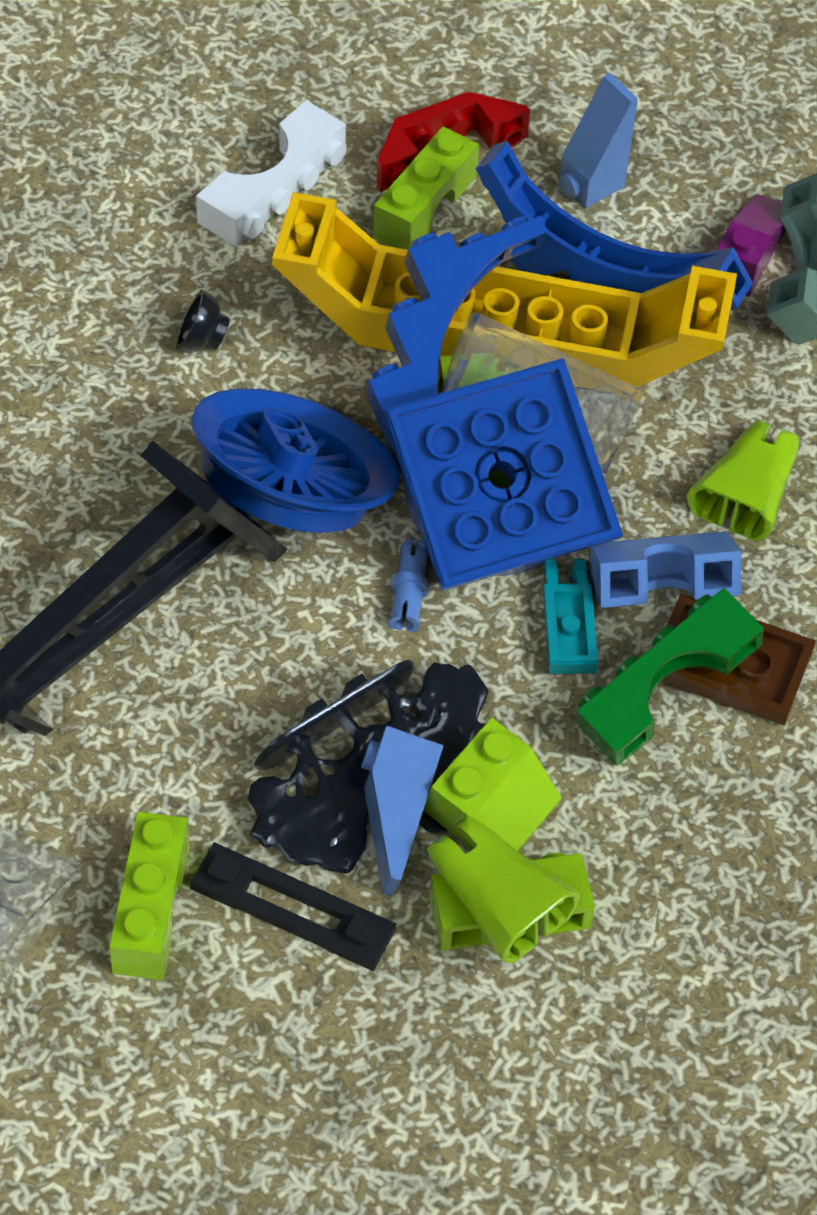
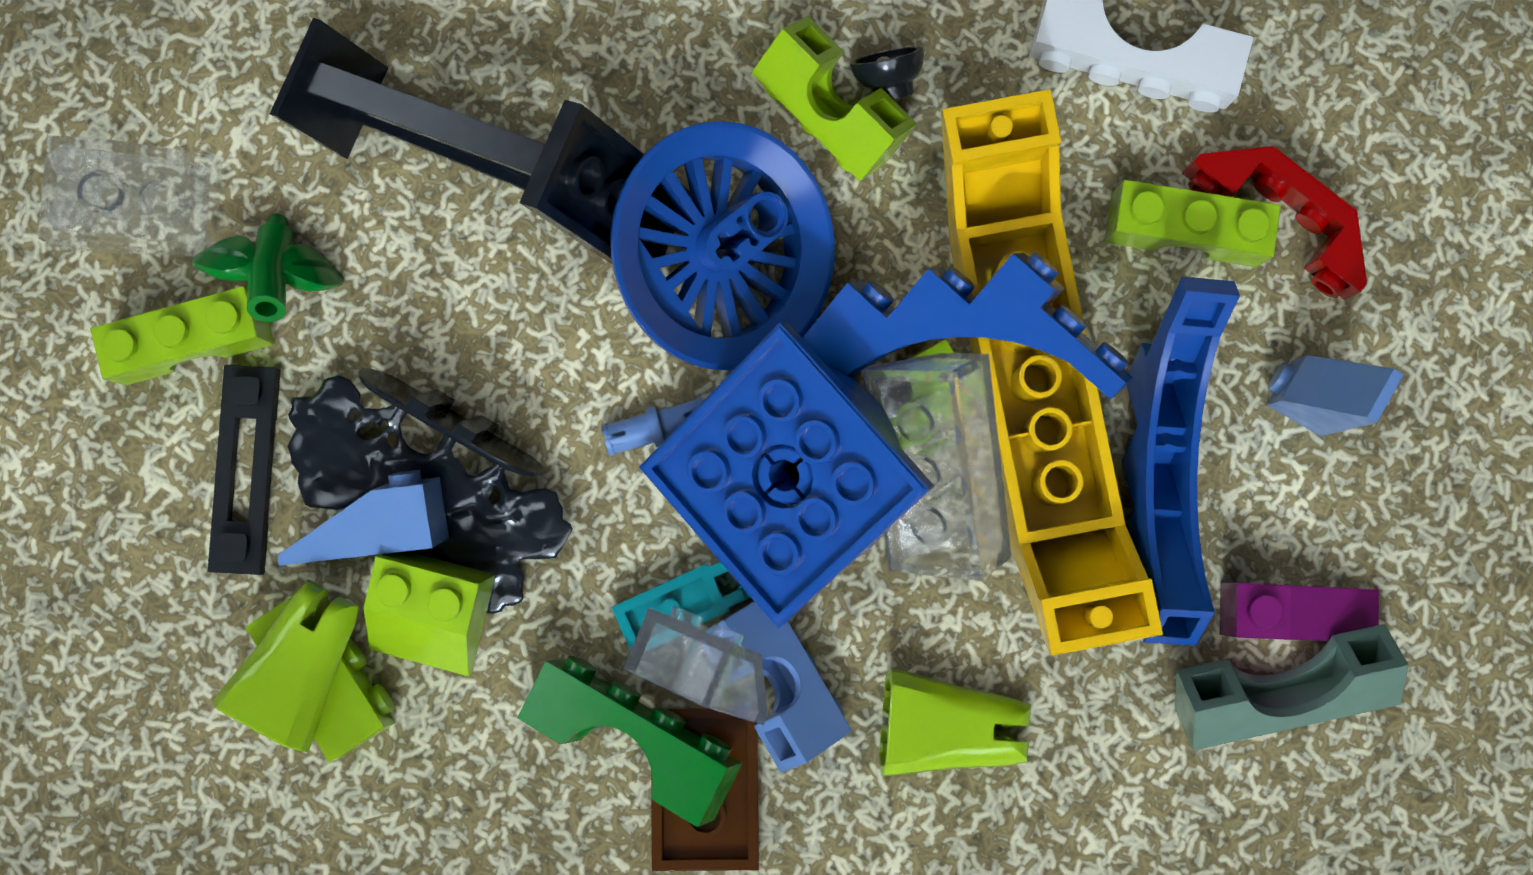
camera: 75 degrees right, 30 degrees up
(113, 802) = (268, 267): none -> green plant
(244, 356) = (799, 76): none -> lime arch
(631, 591) = (700, 664): none -> clear slope

